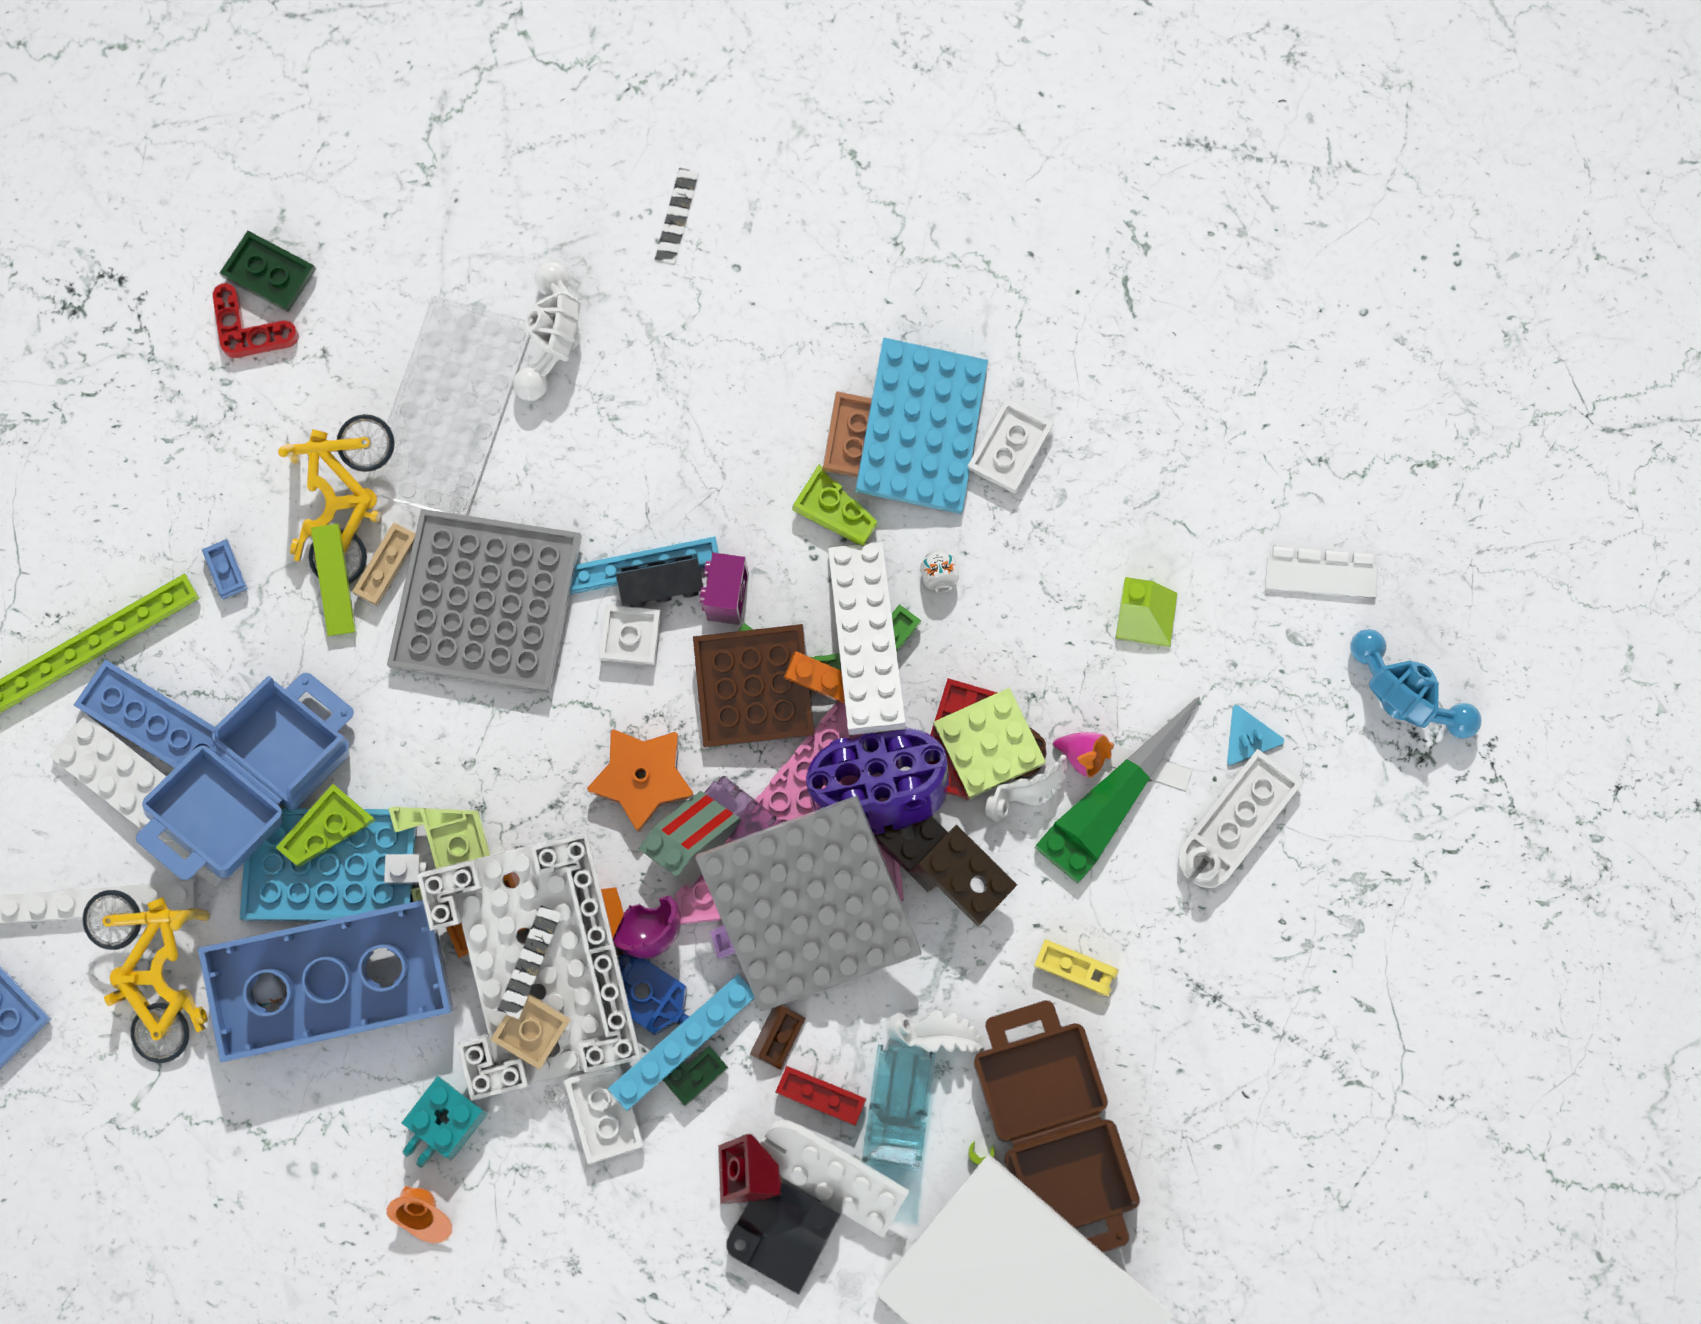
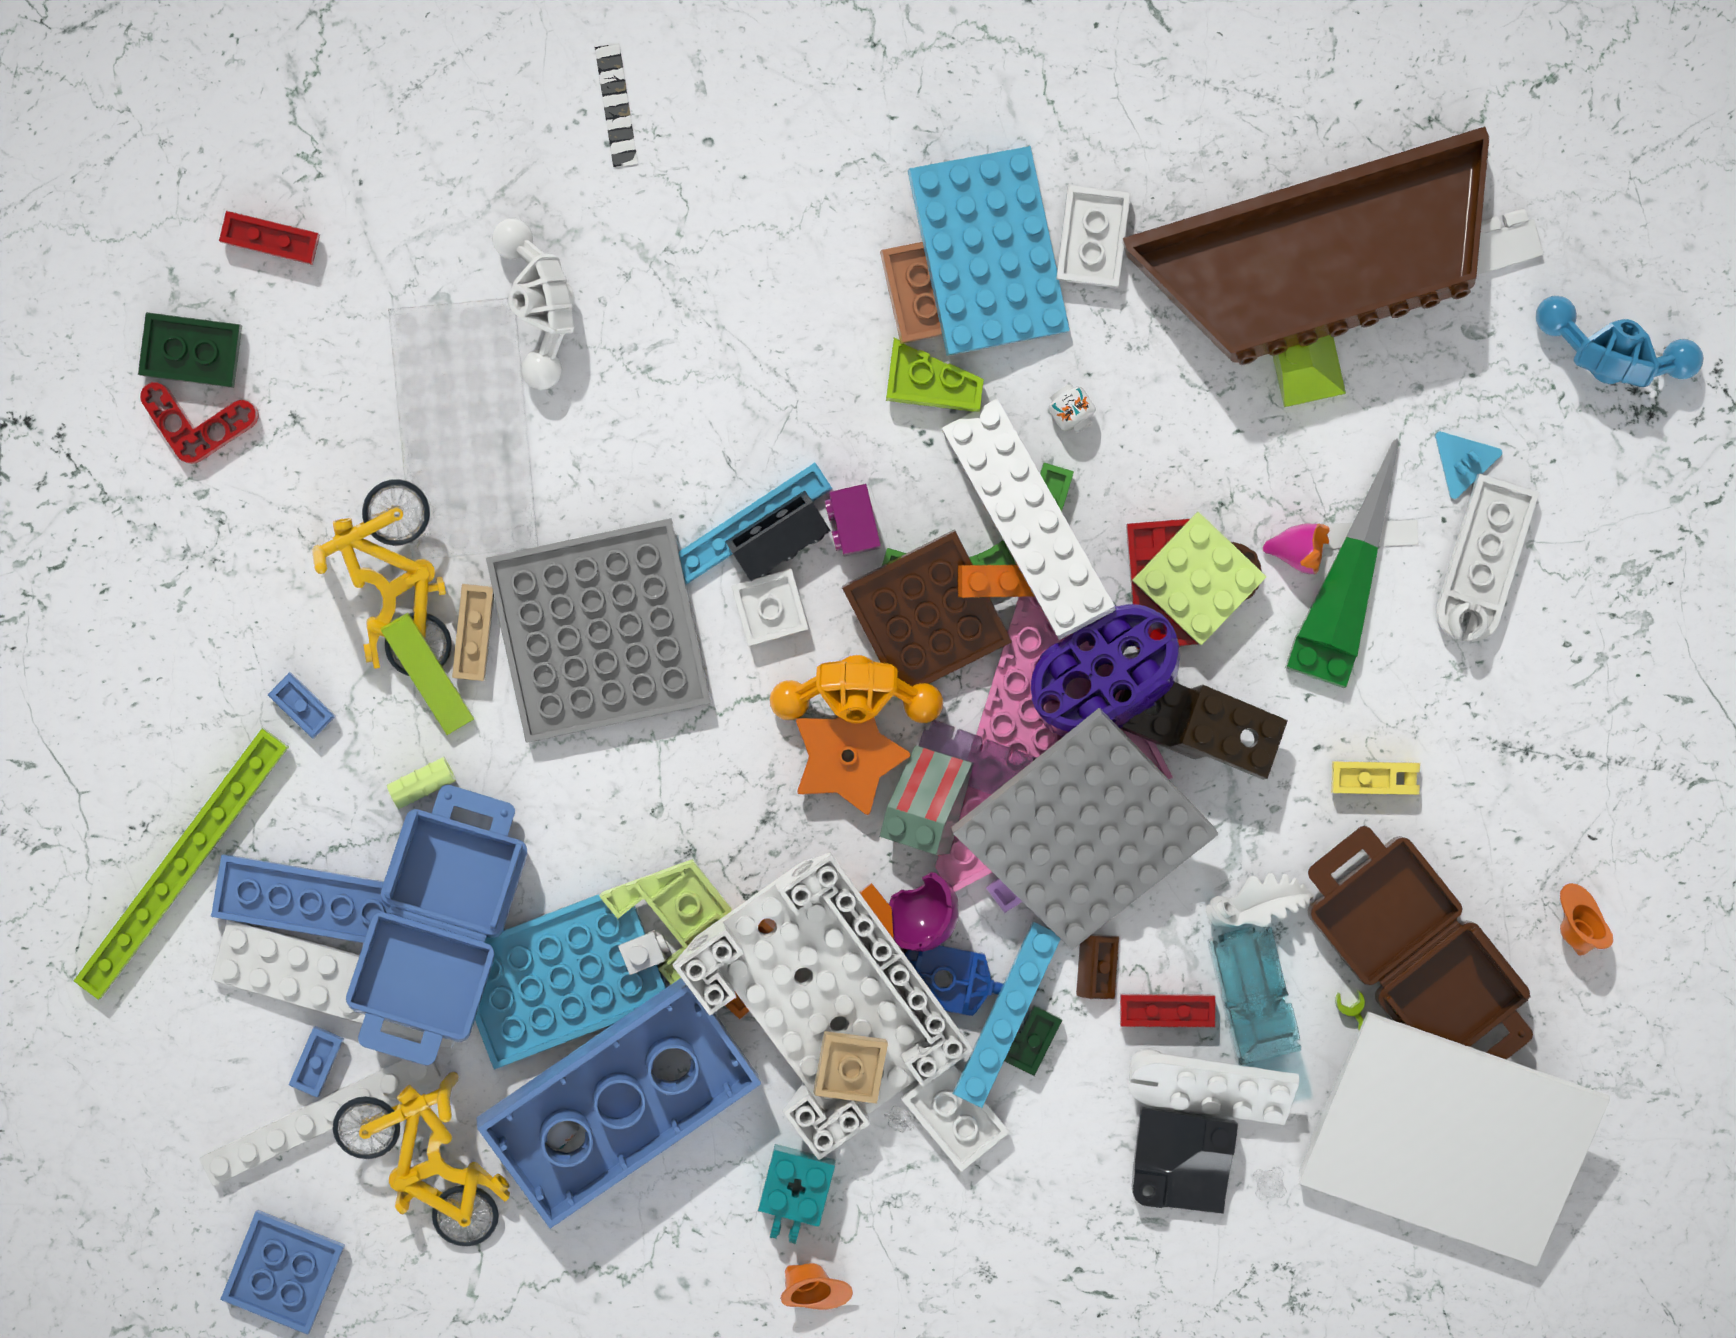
camera: 30 degrees left, 15 degrees up
(100, 856) = (316, 1061): none -> medium blue plate
(289, 664) = (421, 782): none -> yellowish green axle
(324, 826) = (540, 941): lime wing -> none
(367, 212) = (269, 237): none -> red plate
(529, 962) = (823, 1003): sticker -> none
(668, 722) = (856, 692): none -> light orange piece
(747, 1171) = (1125, 1118): dark red slope -> none
(1026, 790) = (1259, 612): white plant -> none
(1194, 521) = (1326, 250): none -> reddish brown windscreen
(1210, 1160) = (1583, 921): none -> orange piece

